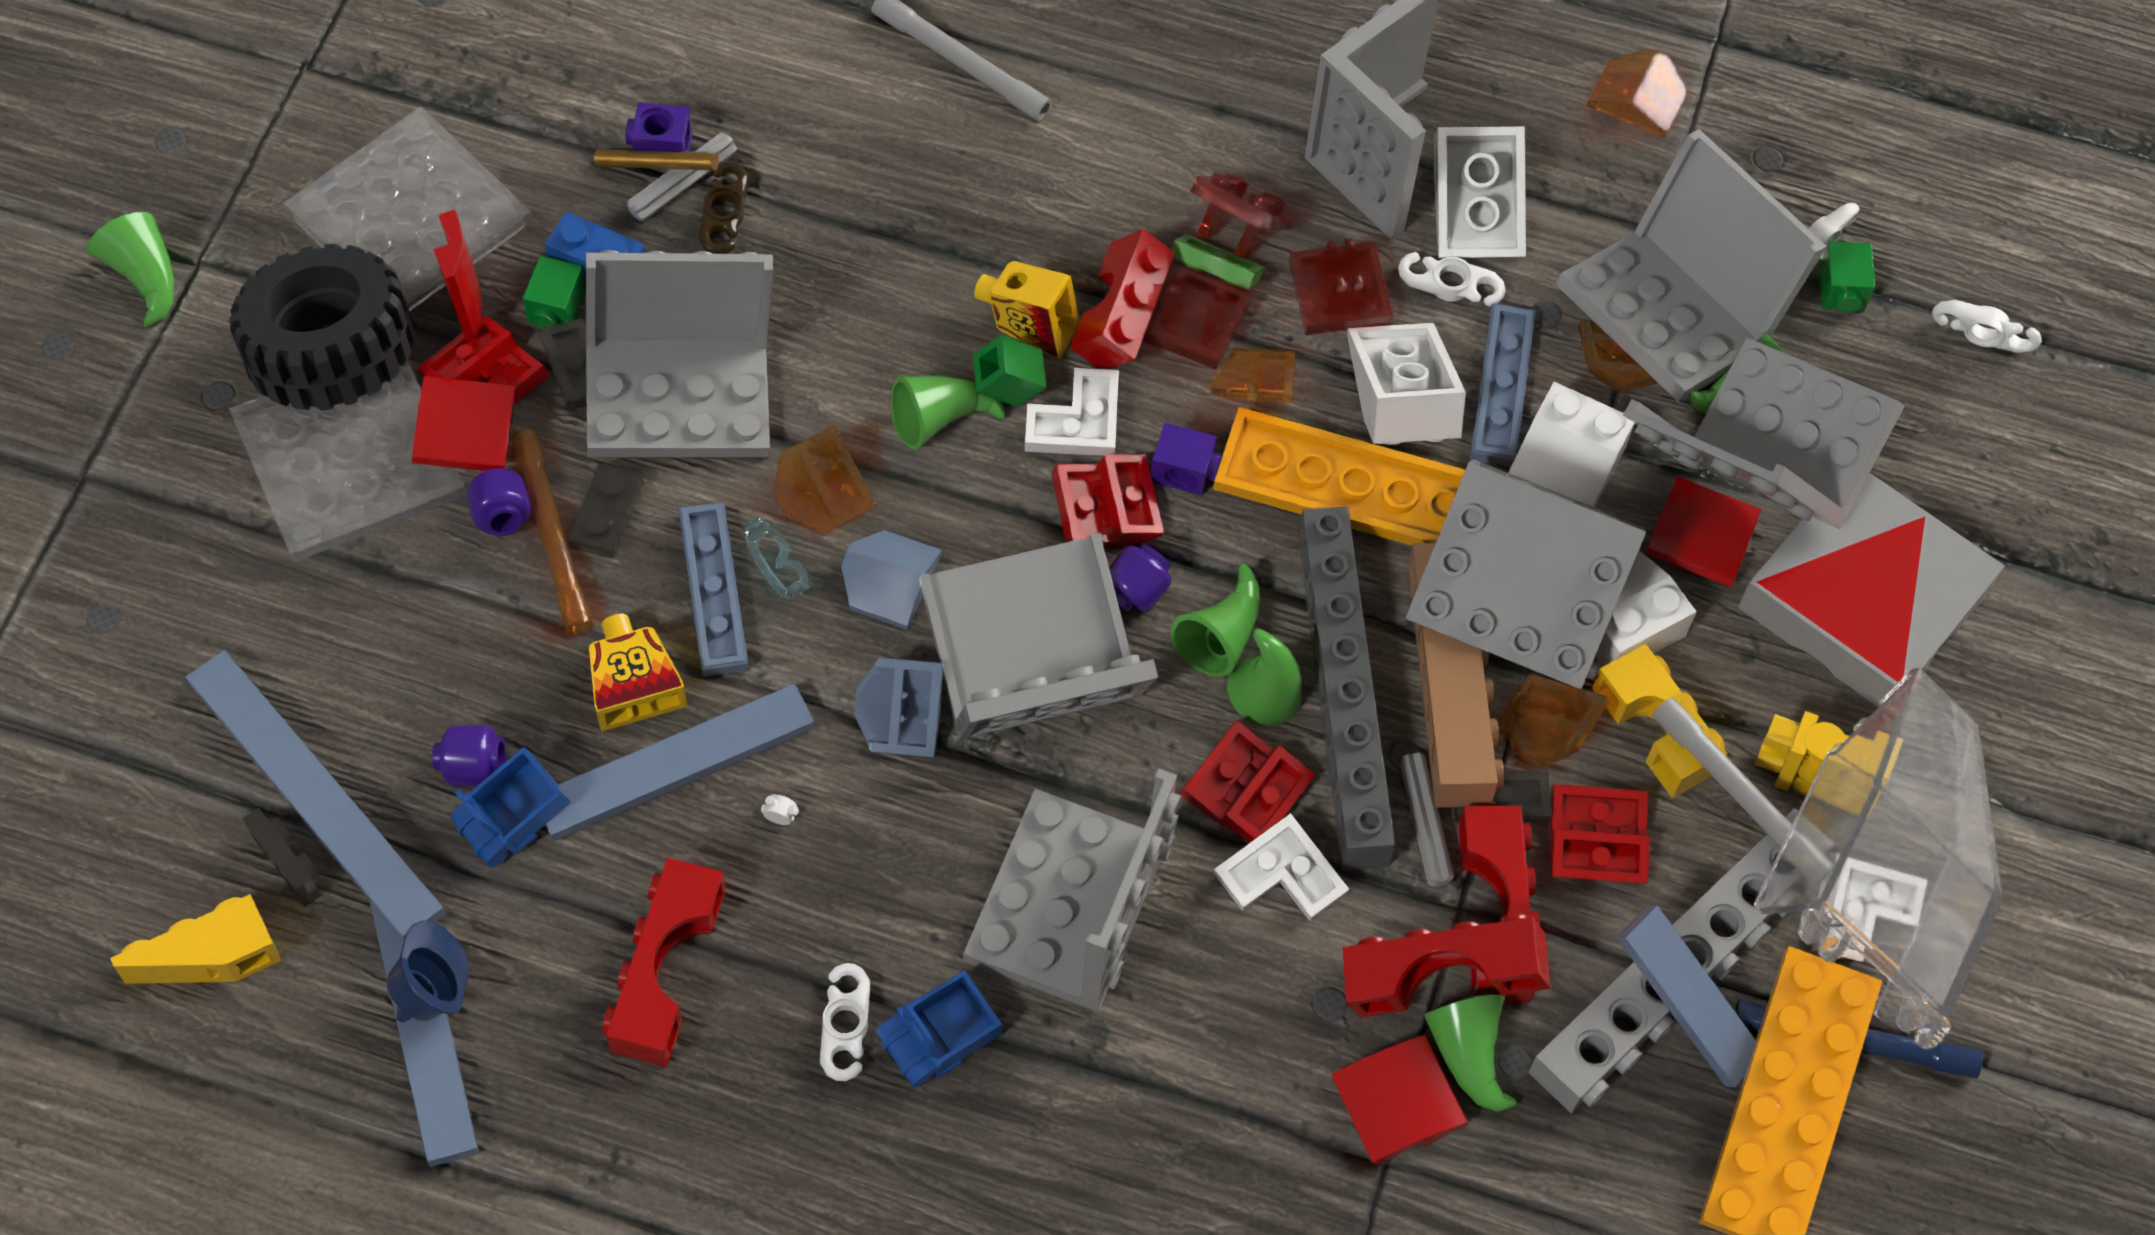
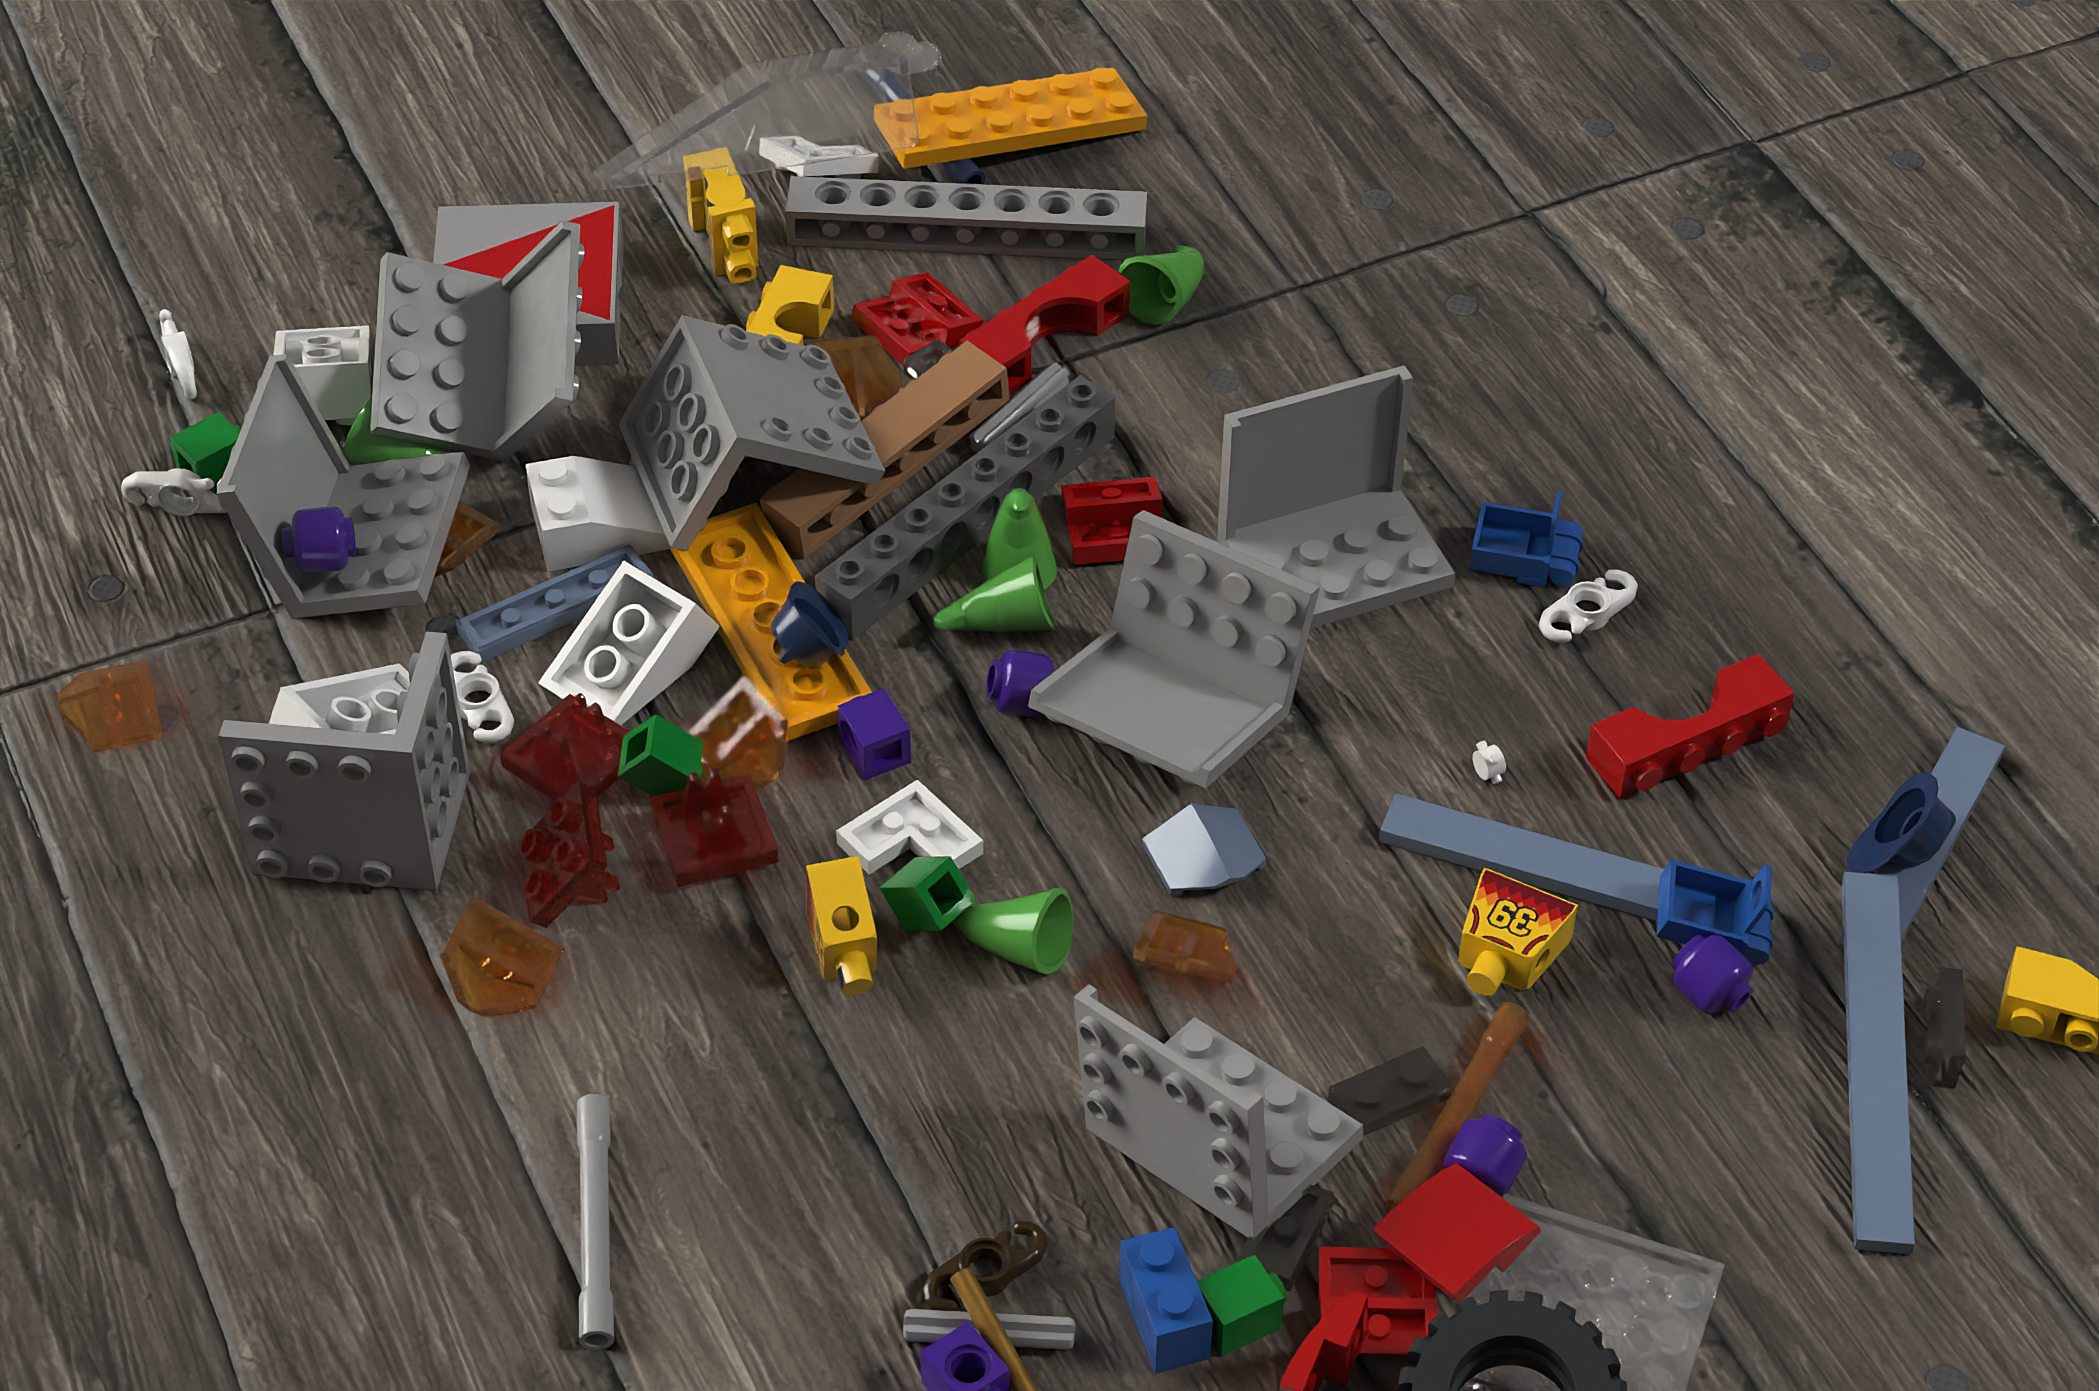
camera: 130 degrees left, 15 degrees down
(713, 589) = (1362, 961): sand blue tile -> none
(754, 532) = (1296, 932): clear light blue helmet -> none
(901, 706) = (1318, 746): sand blue slope -> none
(1108, 500) = (970, 764): red slope -> none
(1115, 327) = (719, 876): red arch -> none
(1202, 133) = (497, 961): none -> clear orange slope
(1217, 261) = (639, 849): bright green plate -> none
(1274, 314) = (659, 757): none -> green brick
(1285, 857) = (1156, 453): white plate -> none
(1299, 468) = (808, 628): none -> dark blue piece
(1386, 973) = (1173, 336): red arch -> none
(1399, 1099) = (1253, 293): red slope -> none
(1658, 240) = (320, 539): none -> dark purple head
(1689, 735) = (795, 277): light grey piece -> none
(1689, 994) = (1005, 176): sand blue tile -> none
(1703, 531) = (594, 411): red slope -> none
(1881, 363) = (332, 367): none -> white slope

